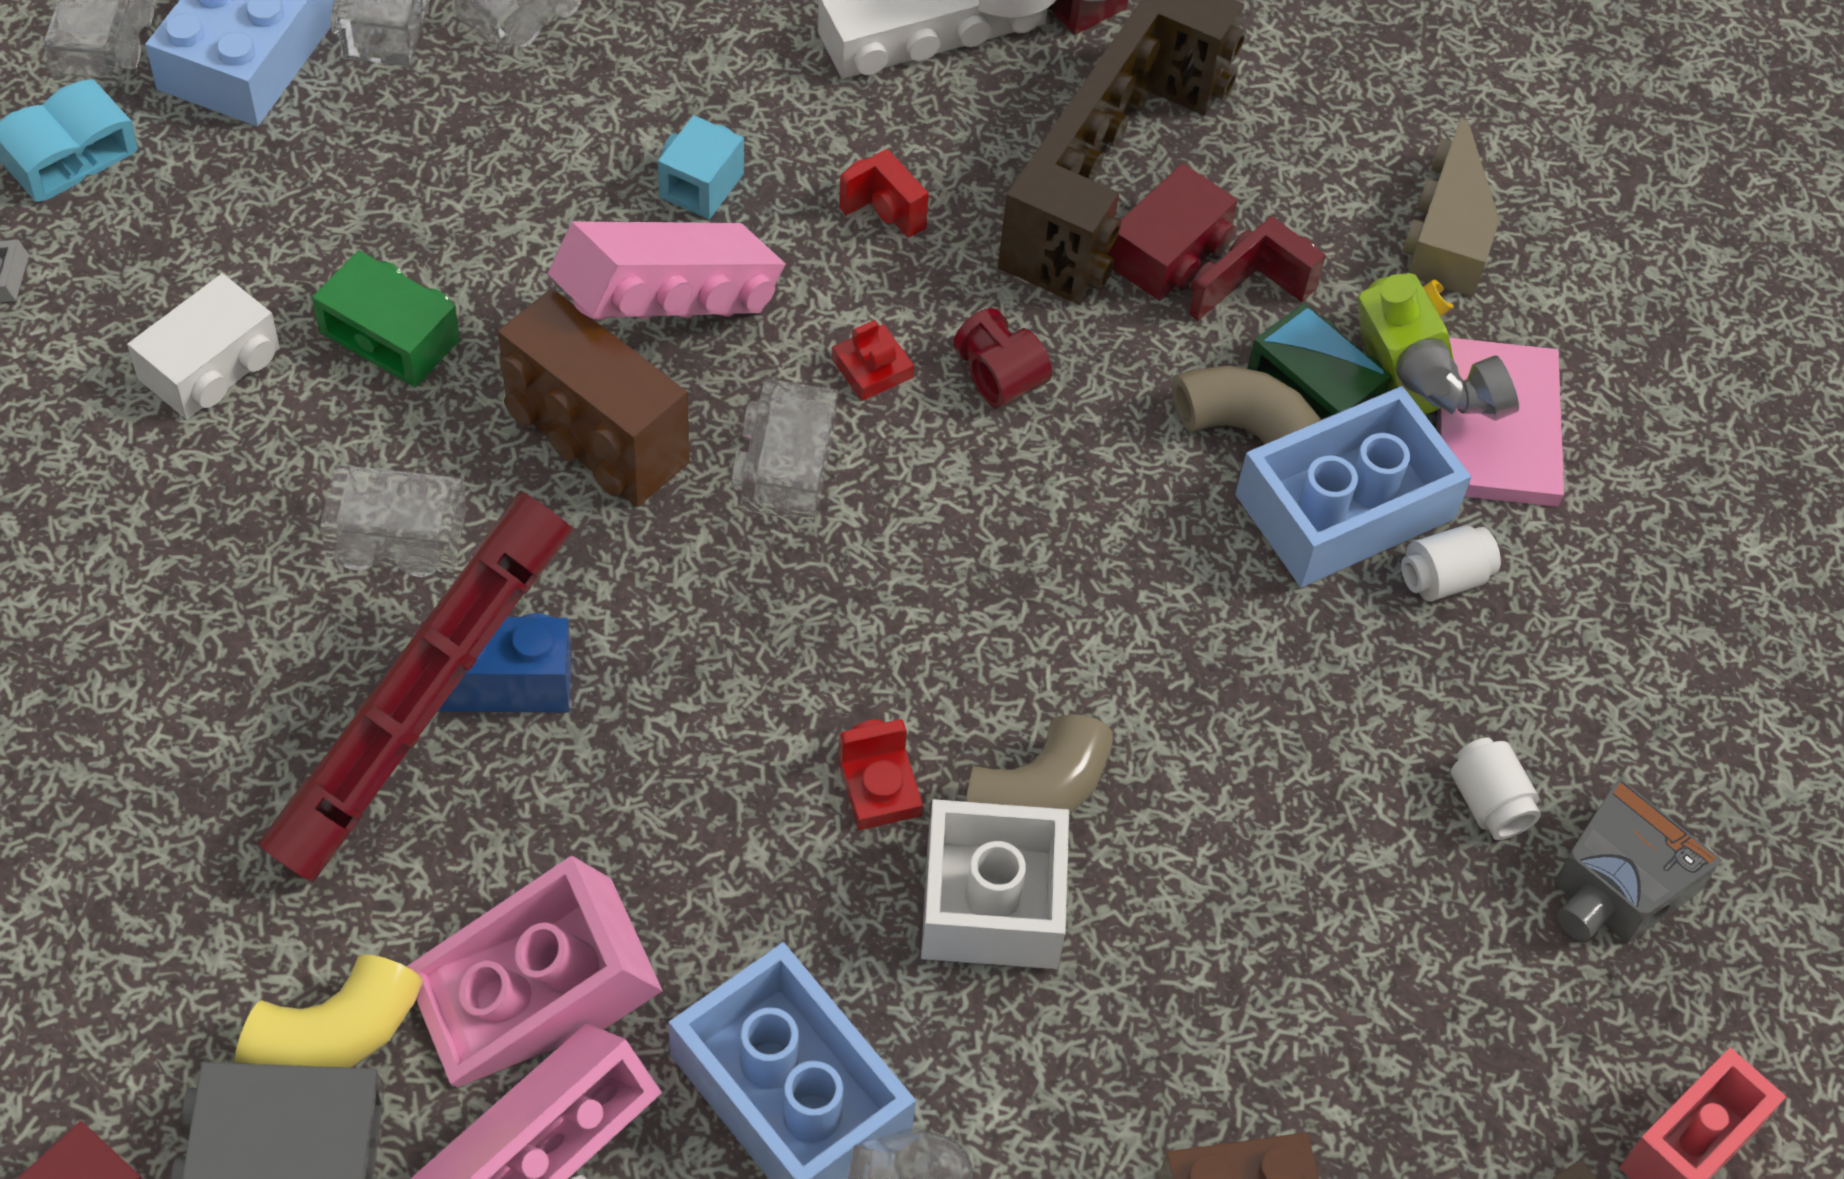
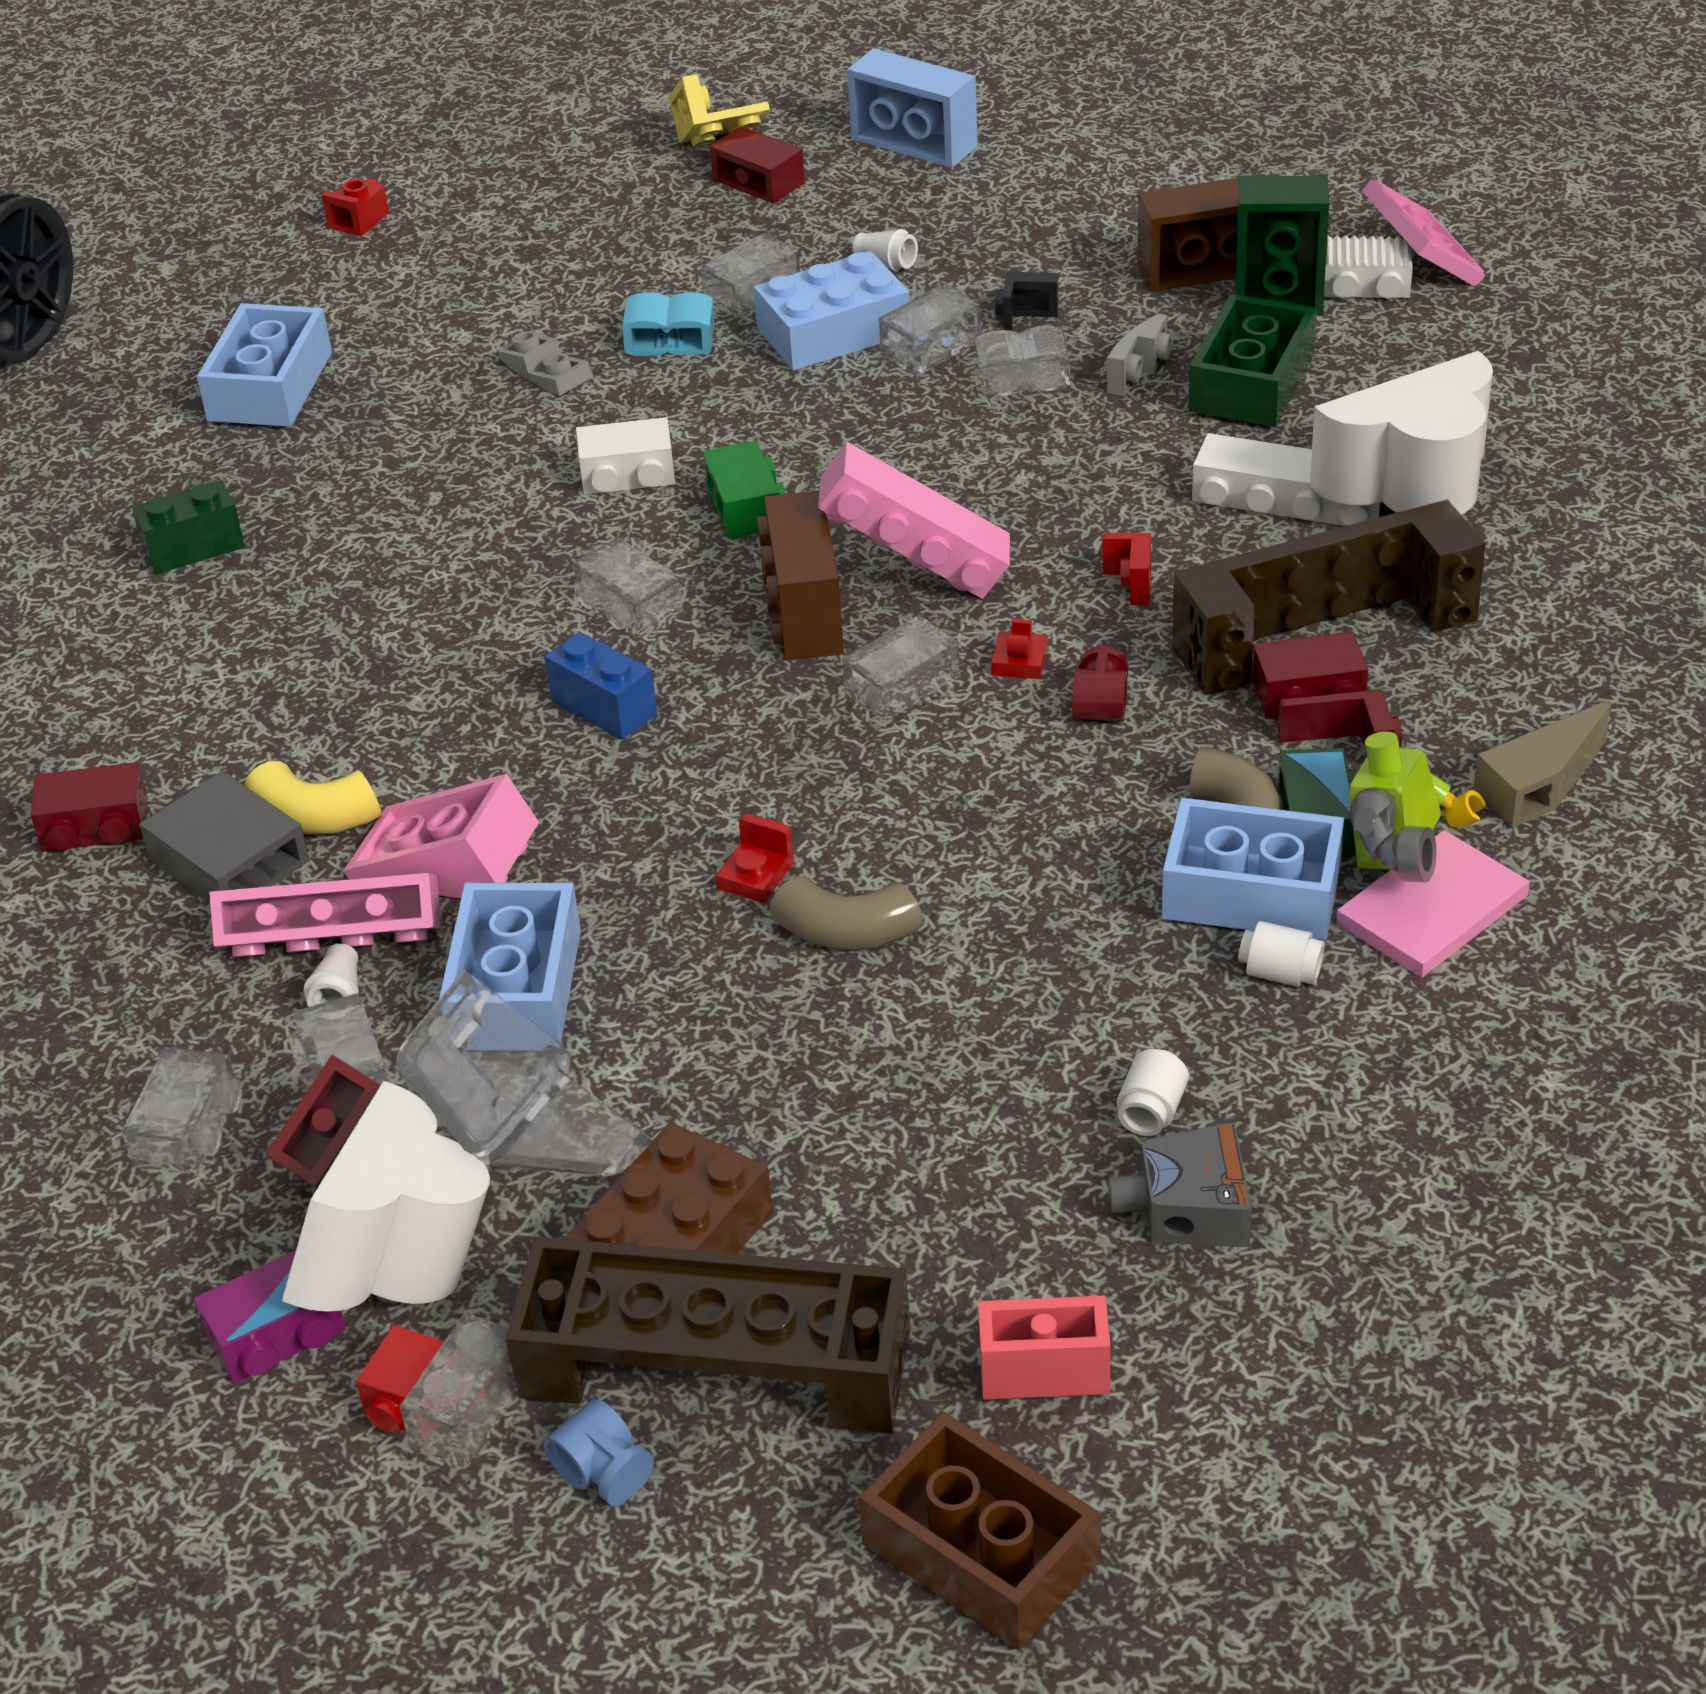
camera: 50 degrees right, 15 degrees down
(415, 687) = (522, 649): dark red piece -> none
(700, 166) = (1028, 498): medium azure brick -> none
(995, 884) = (746, 942): white brick -> none

